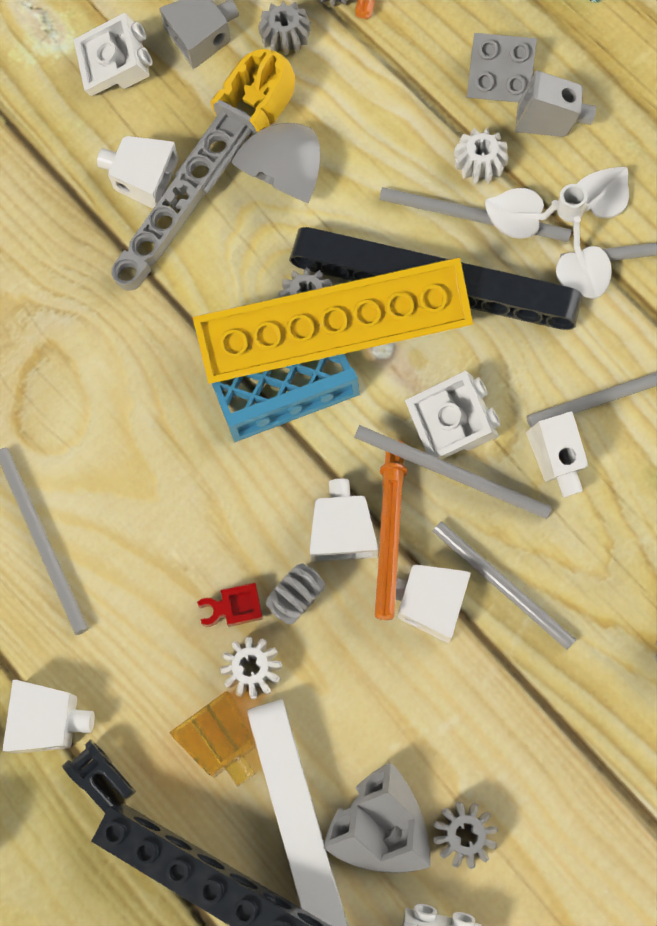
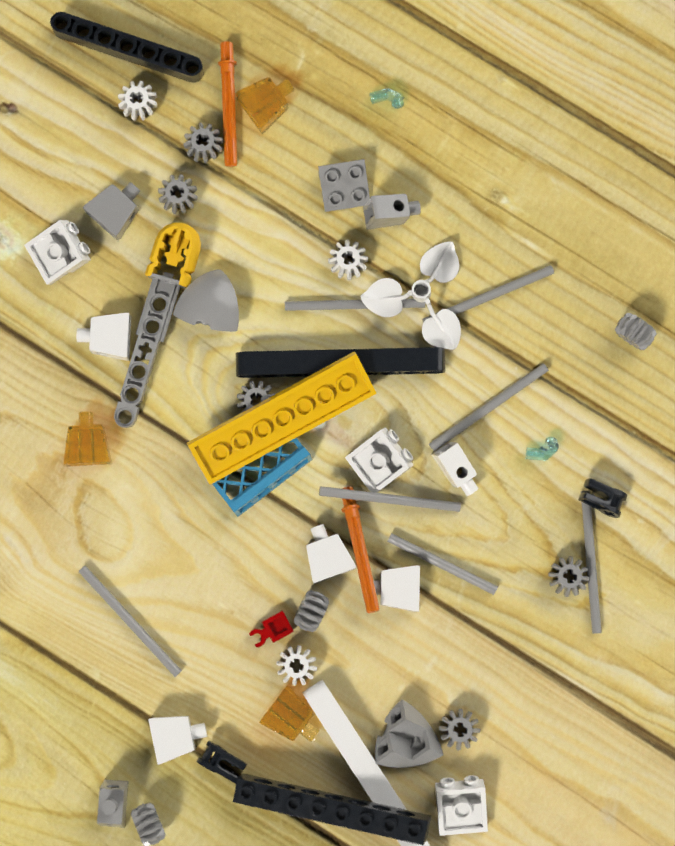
camera: 25 degrees left, 10 degrees up
(64, 292) = (86, 443): none -> clear yellow torso

